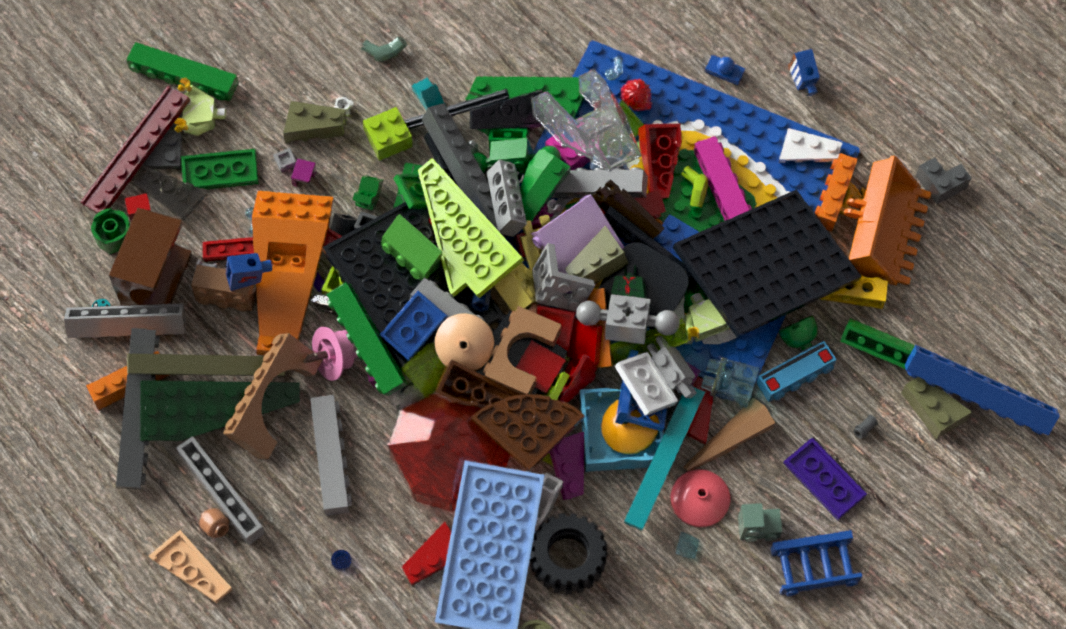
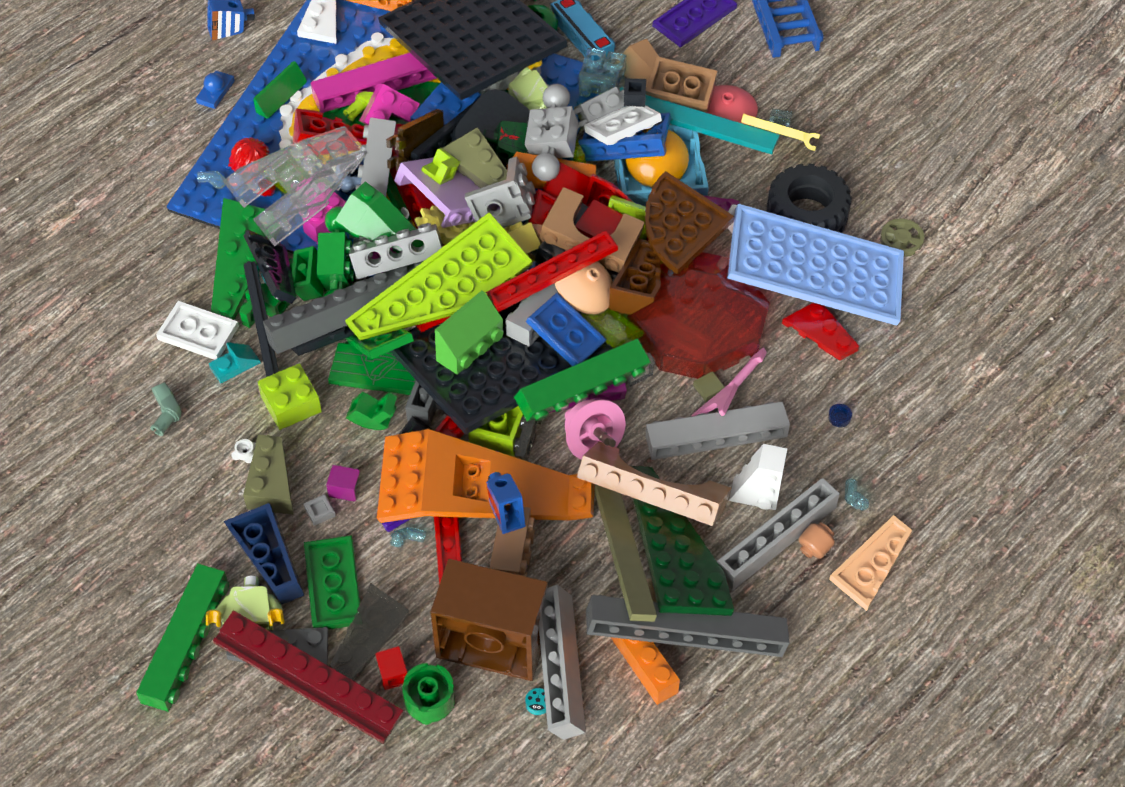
camera: 90 degrees left, 10 degrees down
(243, 123) = (266, 548): none -> dark blue wedge
(256, 559) = (853, 497): none -> clear light blue arm
(266, 481) = (760, 479): none -> white wedge
(361, 461) = (723, 399): none -> bright pink piece
(379, 454) = (708, 386): none -> olive tile
(460, 68) = (197, 330): none -> white plate
(464, 310) = (552, 271): none -> red tile
(588, 227) = (442, 167): none -> lime panel
(658, 534) = (781, 130): none -> light yellow tile
(678, 387) = (635, 92): none -> black plate
(686, 198) = (388, 102): none -> dark pink brick
(707, 447) = (682, 83): none -> medium nougat brick
(714, 116) = (279, 90): none -> green slope
(758, 523) = (753, 58): sand green brick -> none

